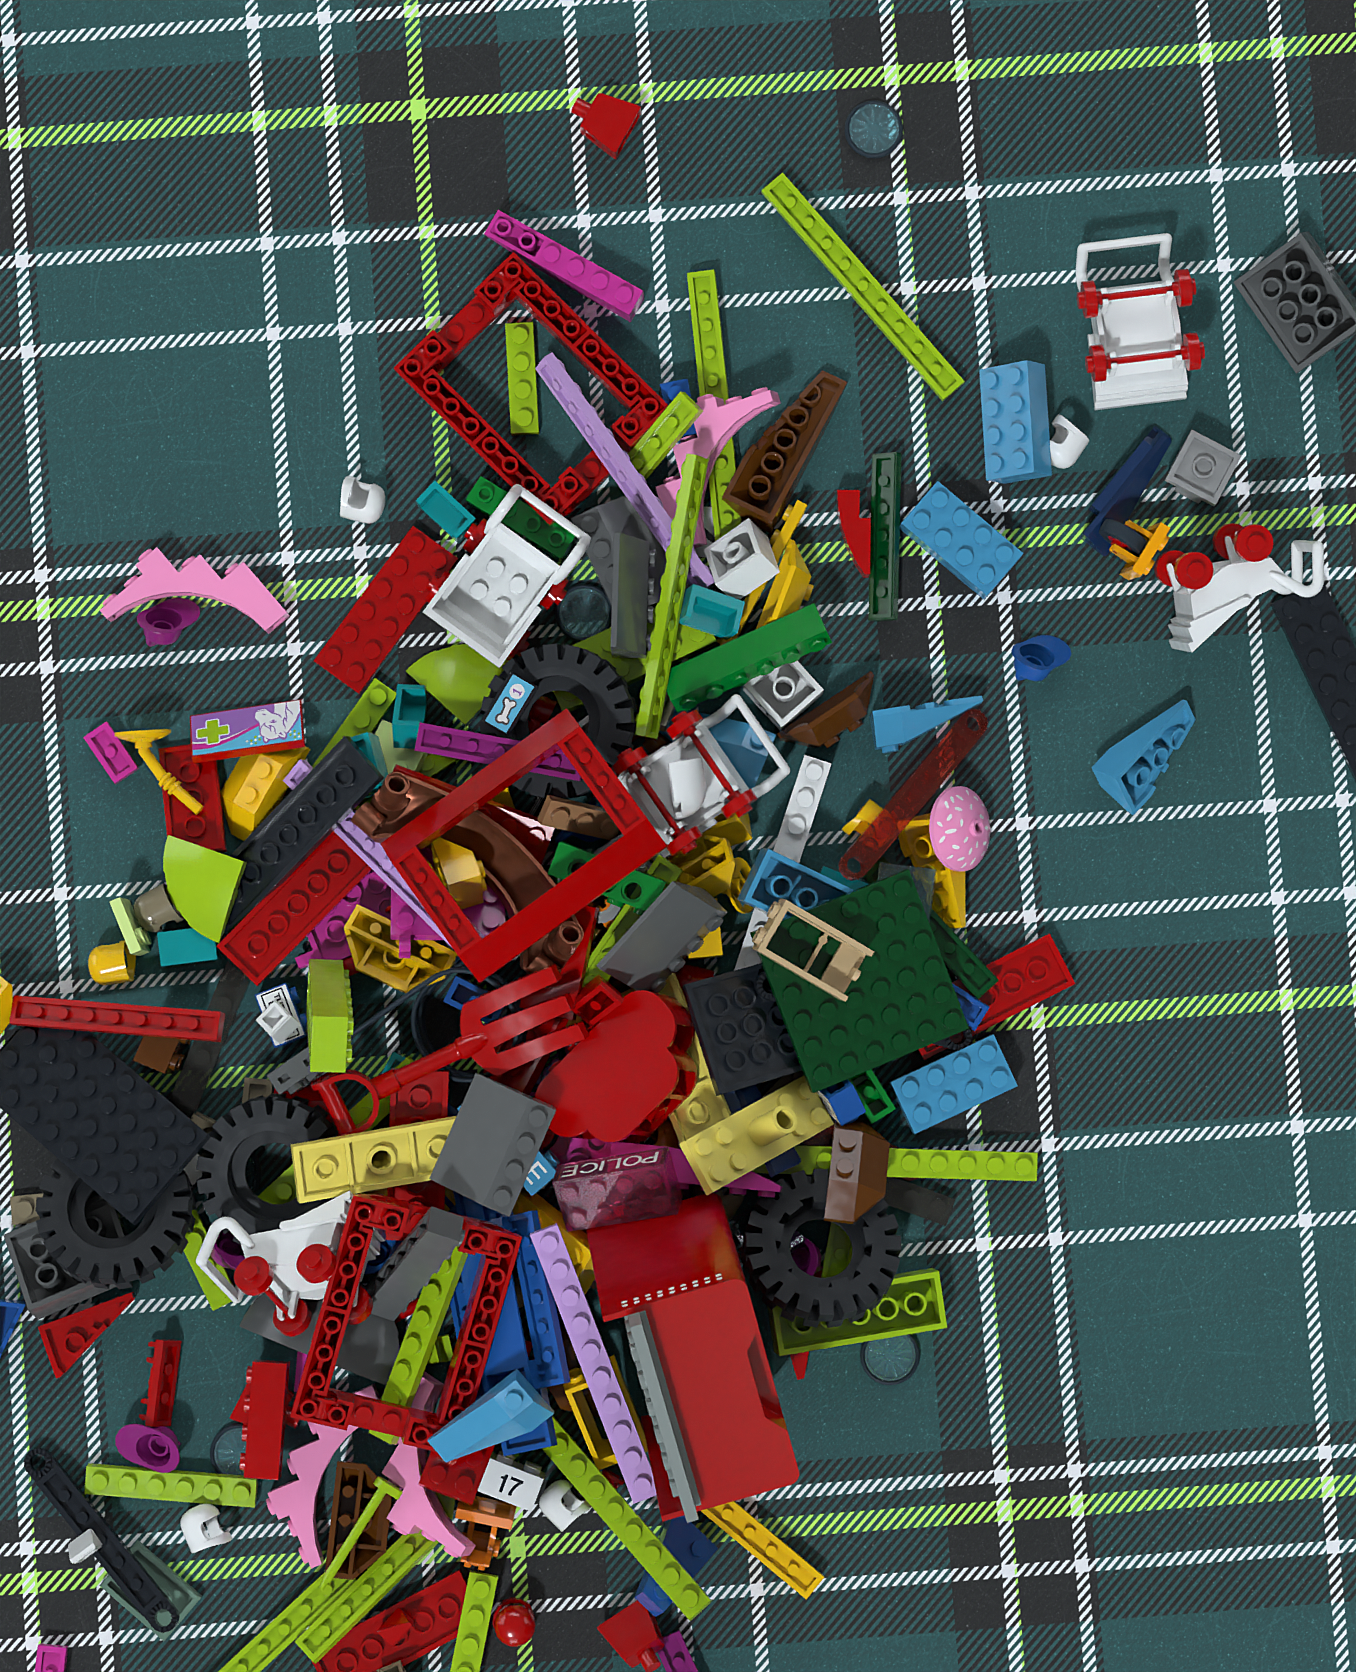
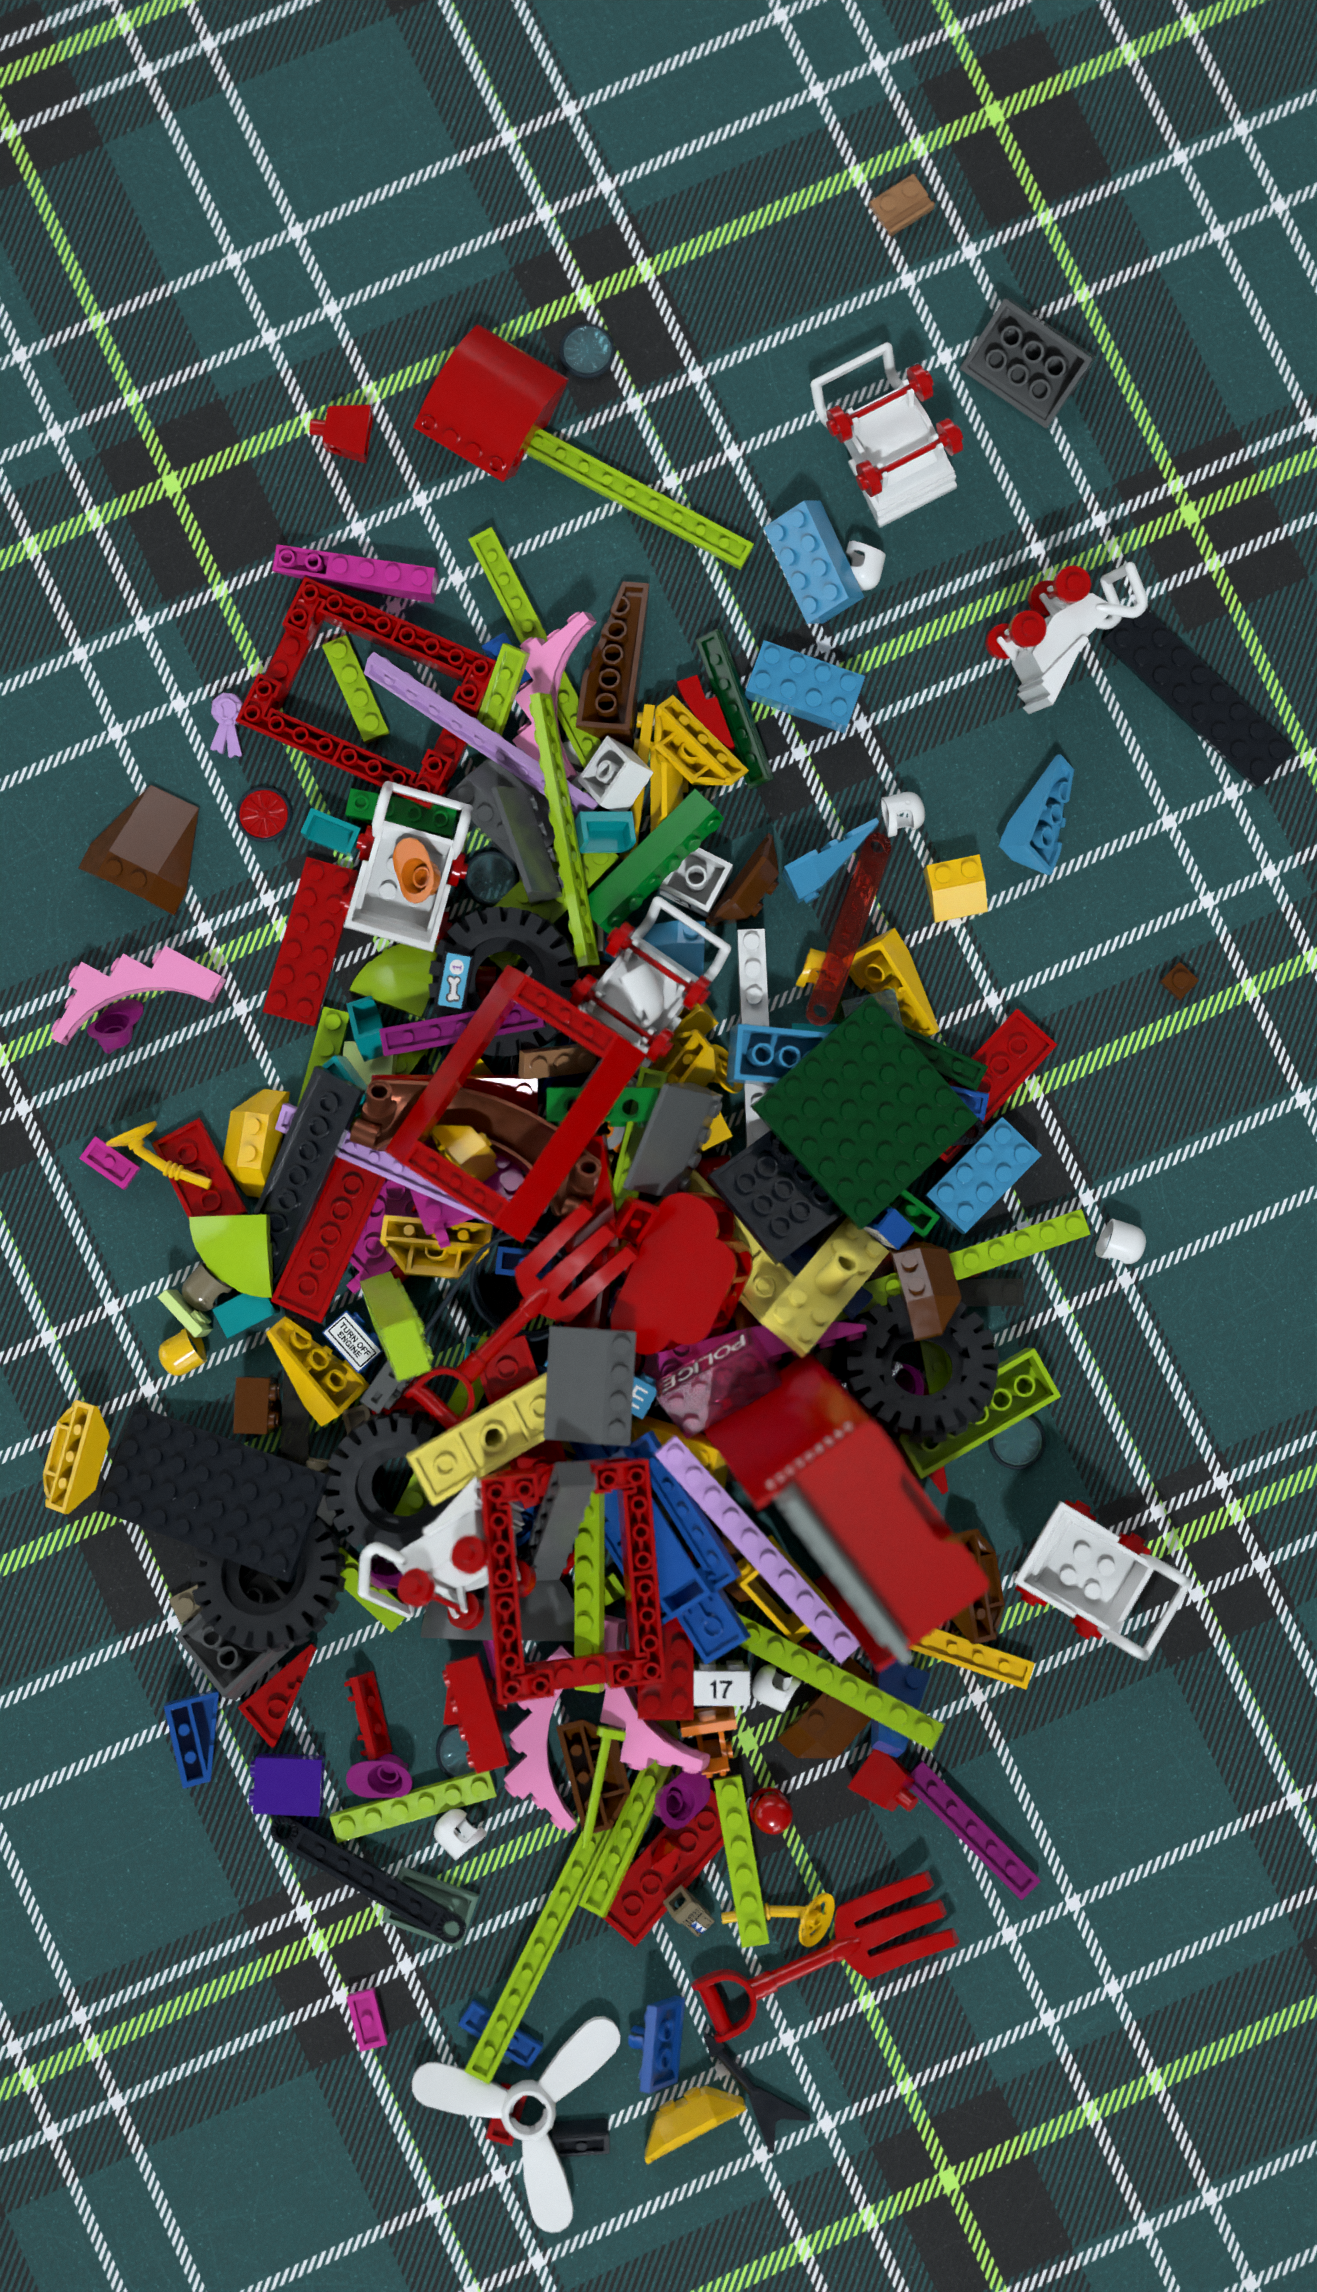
camera: 20 degrees left, 0 degrees up
(58, 1419) = (287, 1784): none -> dark purple brick
(83, 1546) = (354, 1892): white slope -> none
(117, 1018) = (205, 1400): red plate -> none
(244, 1044) = (318, 1376): none -> yellow wedge
(247, 731) = (226, 1097): tile -> none
(261, 460) = (148, 849): none -> reddish brown wedge
(278, 1022) = (352, 1349): white slope -> none
(361, 501) = (251, 851): white helmet -> none
(387, 354) = (225, 711): none -> lavender piece
(388, 466) = (263, 814): none -> red wheel
(433, 1577) = (682, 1799): none -> magenta piece
(497, 1416) = (688, 1630): dark azure wedge -> none
(512, 584) = (415, 871): none -> orange piece
(599, 1558) = (825, 1723): none -> reddish brown wedge
(758, 148) = (490, 402): none -> red slope
(792, 1506) = (981, 1617): none -> reddish brown wedge
(828, 560) = (693, 747): none -> yellow wedge
(843, 965) = (845, 1106): tan door -> none
(907, 1508) = (1094, 1576): none -> white piece
(959, 828) = (901, 944): bright pink dish -> none
(1012, 690) = (898, 804): none -> white helmet
(1035, 794) = (956, 888): none -> yellow slope
(1039, 656) = (913, 765): blue piece -> none
(1067, 1202) = (1125, 1244): none -> white helmet
(1126, 488) = (933, 591): dark blue wedge -> none
(1134, 544) = (962, 632): light orange plate -> none
(1202, 469) = (995, 542): light grey panel -> none
(1219, 966) = (1179, 981): none -> reddish brown plate
(1237, 99) = (901, 205): none -> medium nougat plate

